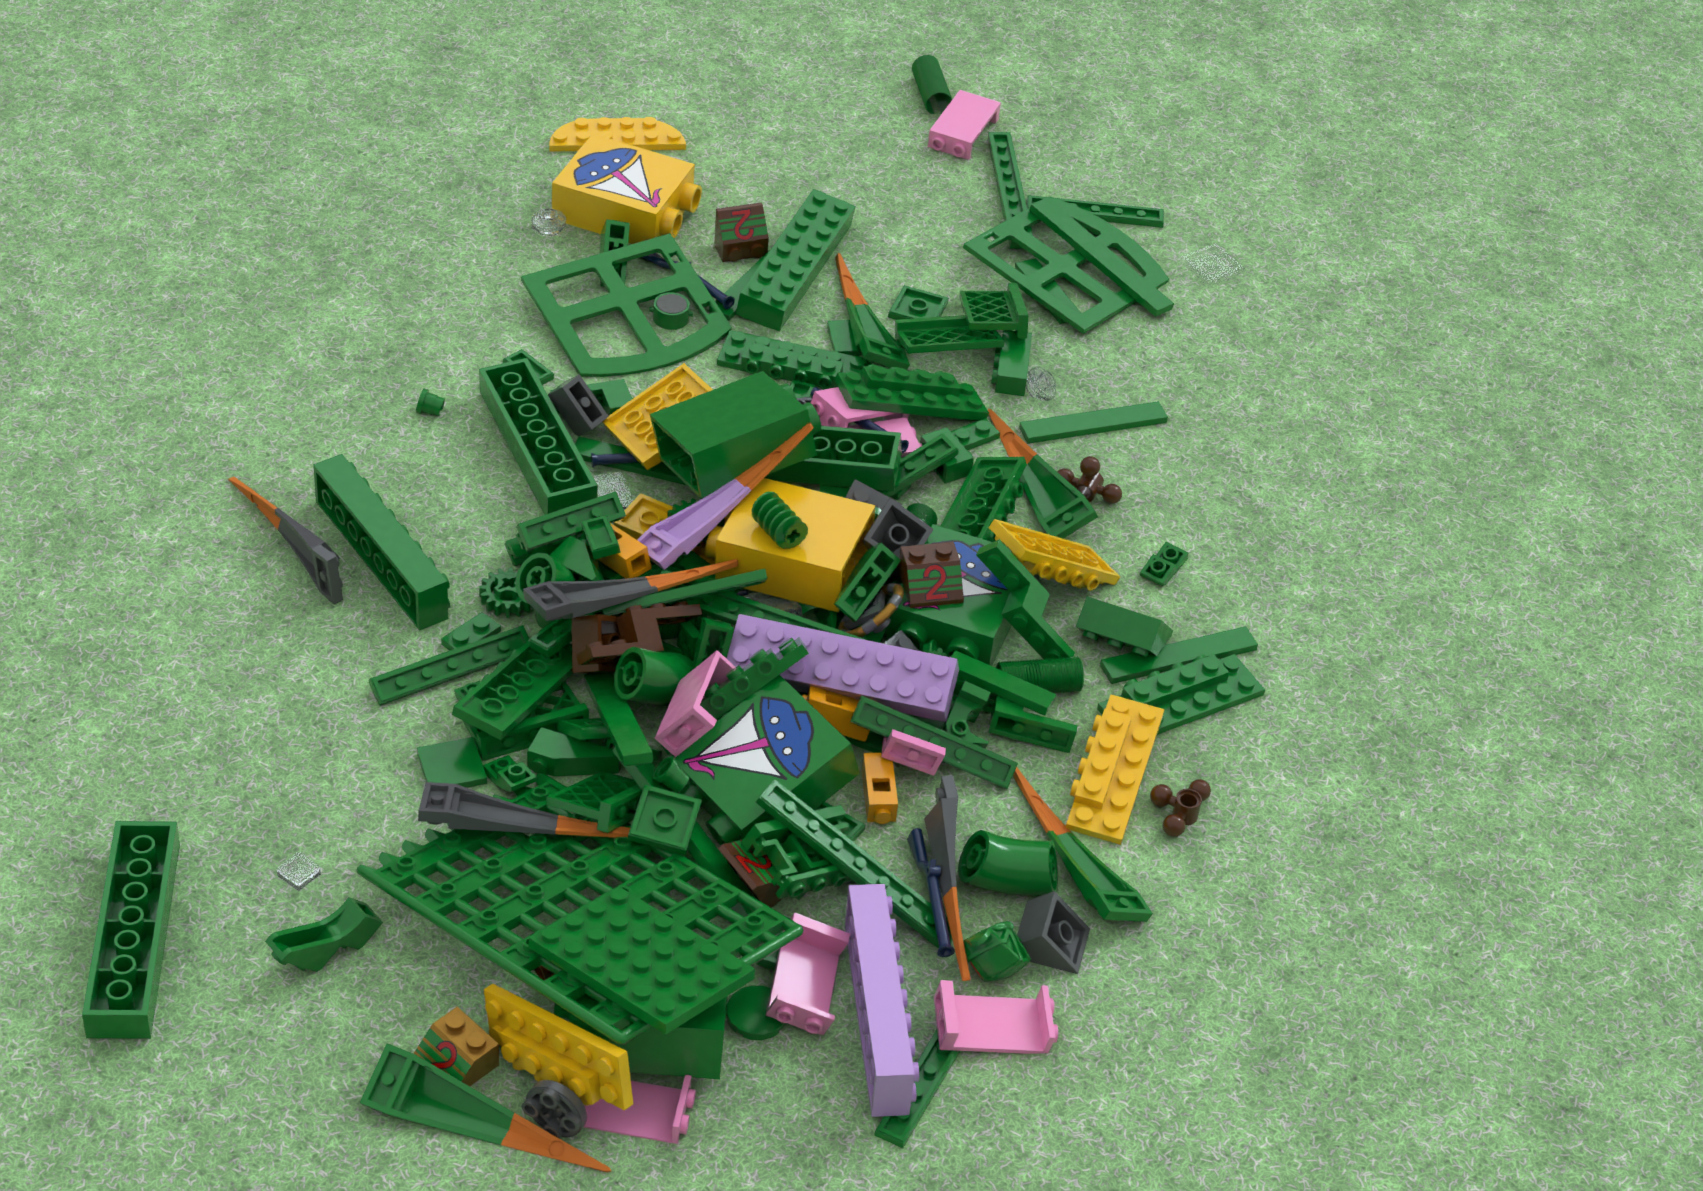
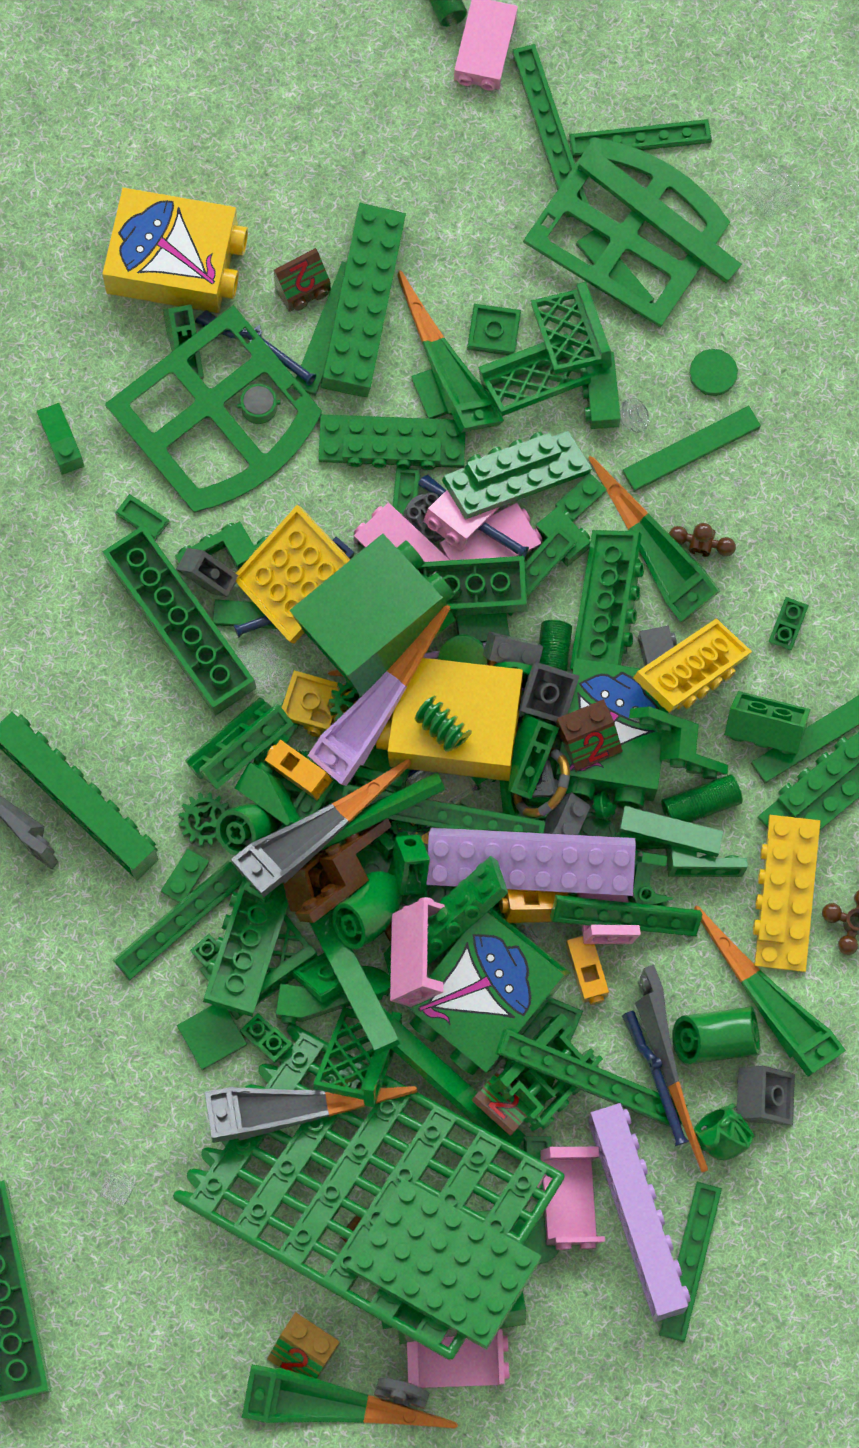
camera: 10 degrees left, 30 degrees up
(315, 943) = (164, 1262): green arch -> none
(429, 403) = (64, 593): green piece -> none
(470, 303) = (60, 438): none -> green slope
(548, 222) = (107, 308): clear plate -> none
(558, 1049) = (390, 1347): yellow plate -> none
(600, 537) = (280, 767): green tile -> none
(639, 132) = (138, 151): yellow plate -> none
(664, 819) = (418, 1079): green tile -> none
(670, 774) = (411, 1029): green piece -> none
(994, 1022) = (735, 1201): bright pink panel -> none
(1128, 374) = (713, 372): none -> green tile

